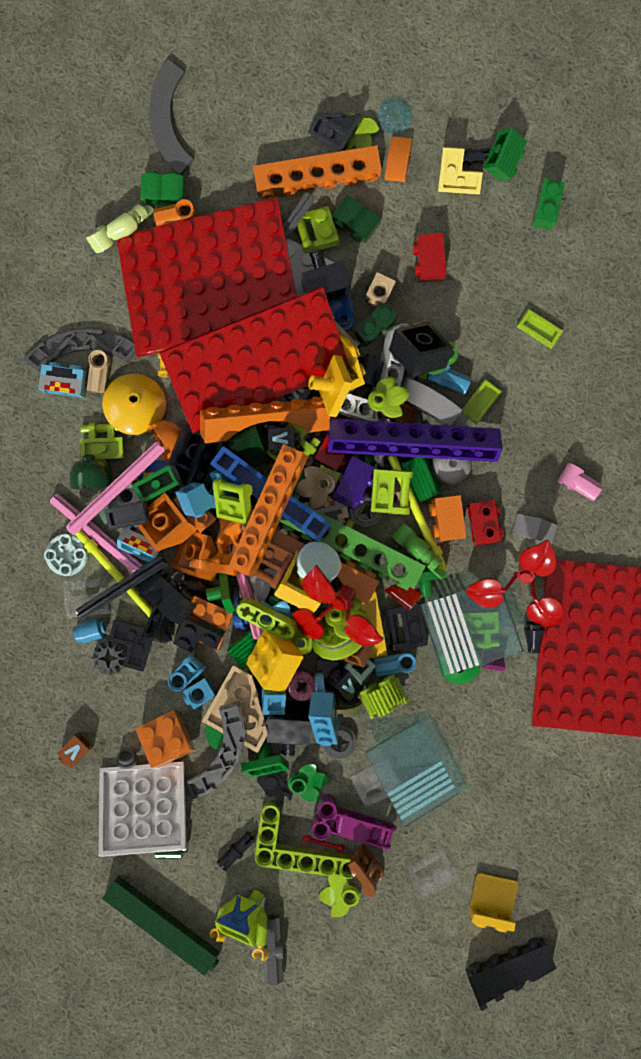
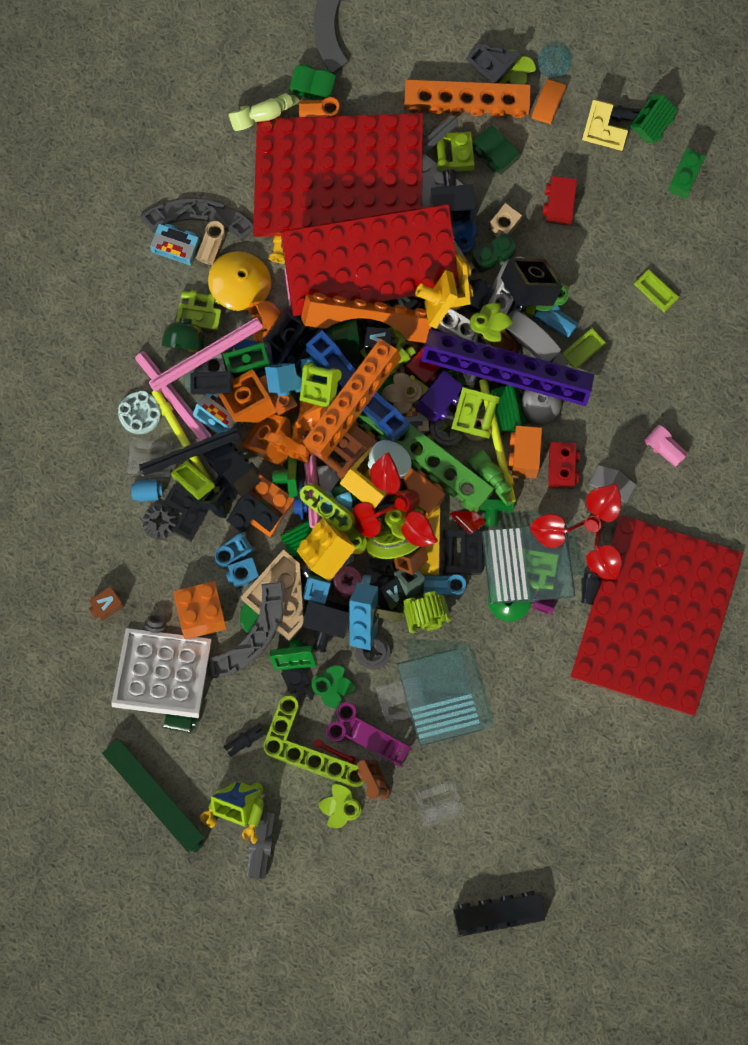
camera: 10 degrees right, 10 degrees down
(131, 612) = (192, 479): none -> lime tile
(195, 585) = (264, 468): black cone -> none
(493, 902) = (496, 842): yellow bracket -> none

